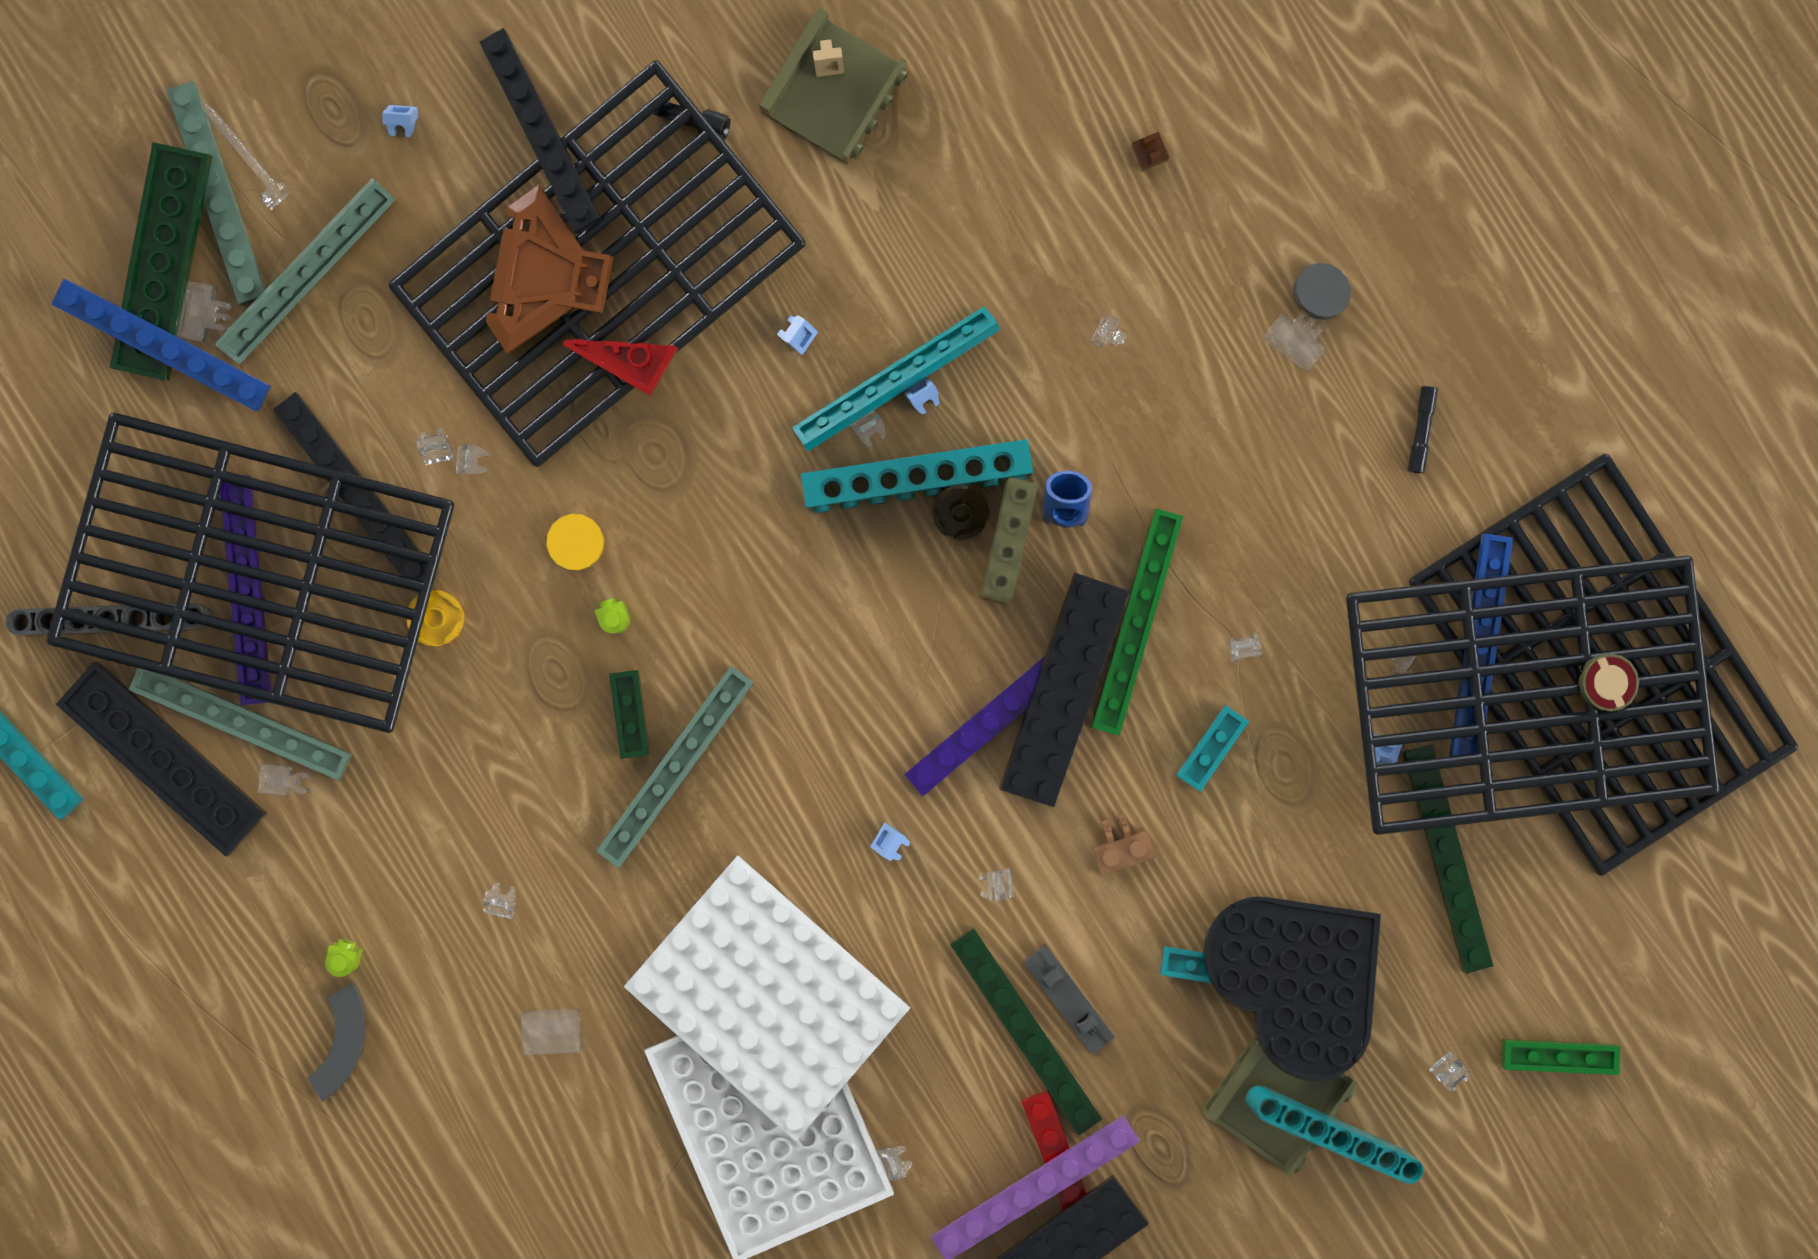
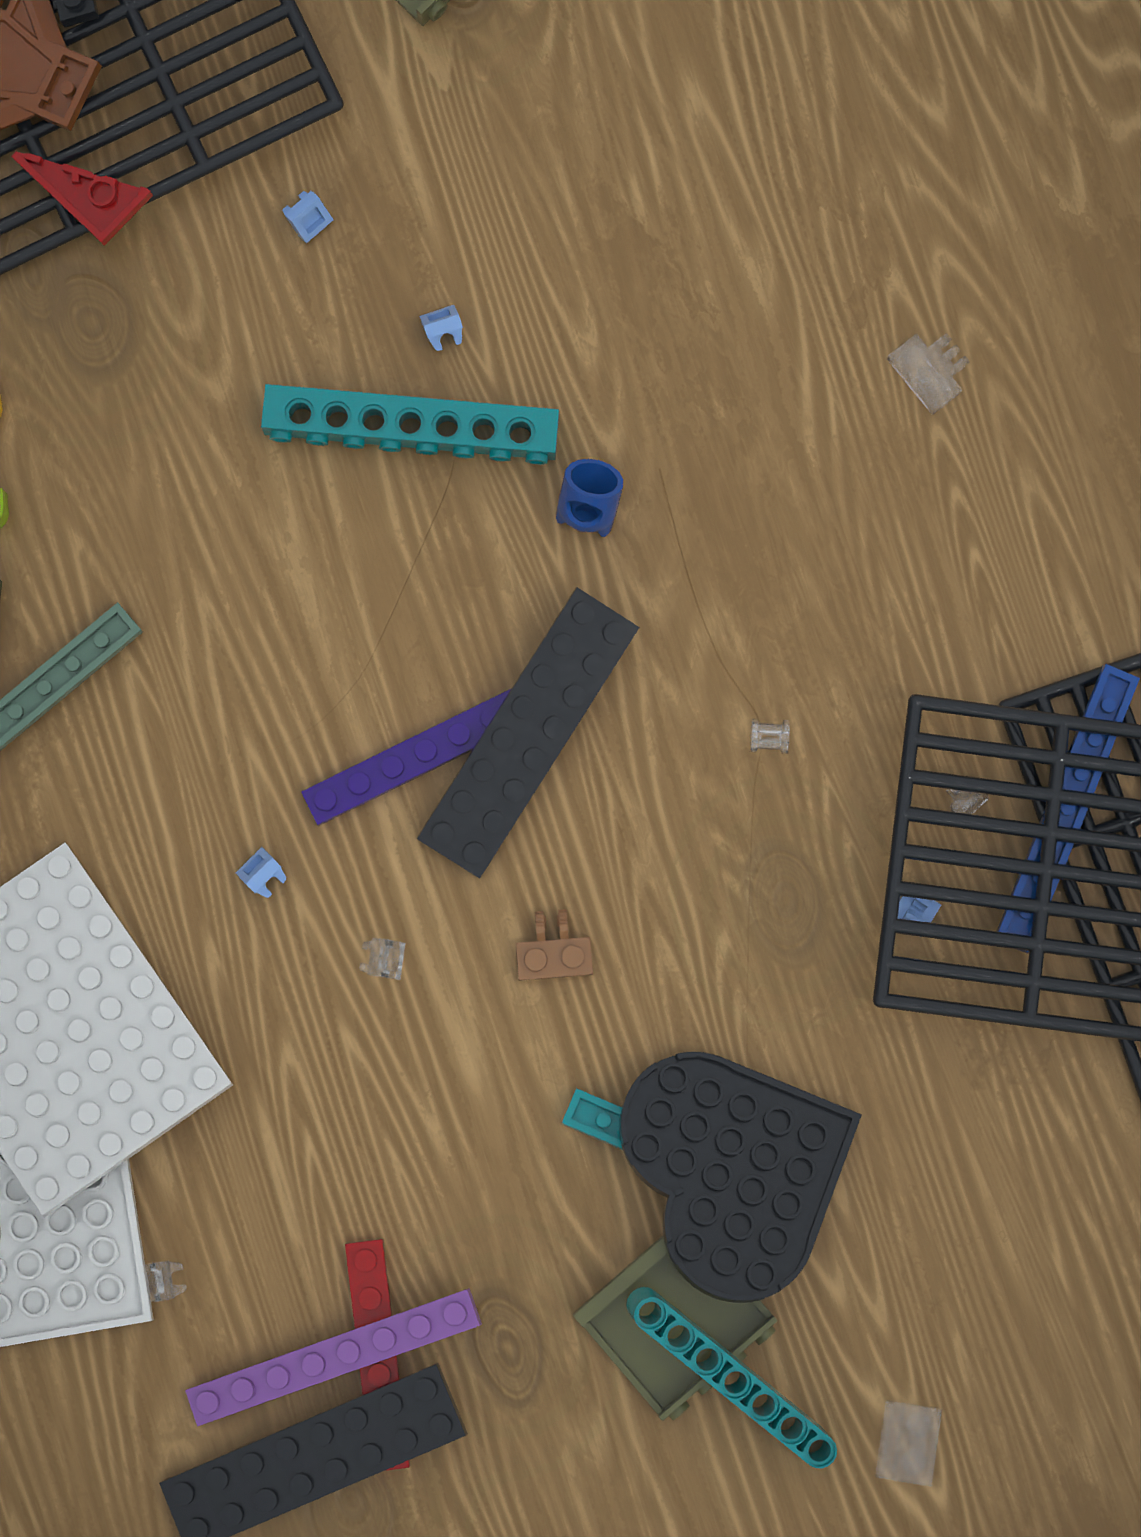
camera: 15 degrees right, 5 degrees down
(868, 426) = (364, 347): clear tile -> none
(896, 378) = (415, 298): teal plate -> none
(960, 511) = (453, 480): dark brown tile -> none
(1008, 540) = (499, 525): olive panel -> none
(1026, 1031) = (374, 1156): dark green plate -> none
(1068, 998) = (438, 1127): dark grey hinge -> none
(1108, 332) = (694, 305): clear tile -> none
(1137, 621) = (641, 672): green plate -> none
(1150, 151) = (801, 97): reddish brown tile -> none
(1212, 748) = (698, 852): teal plate -> none
(1322, 291) = (973, 318): dark grey tile -> none
(1420, 447) = (1068, 500): black piece -> none
(1449, 1071) = (902, 1339): clear tile -> none
(1451, 870) = (966, 1084): dark green plate -> none
(1472, 1146) = (908, 1443): none -> clear plate
(1560, 1057) = (1050, 1355): green plate -> none

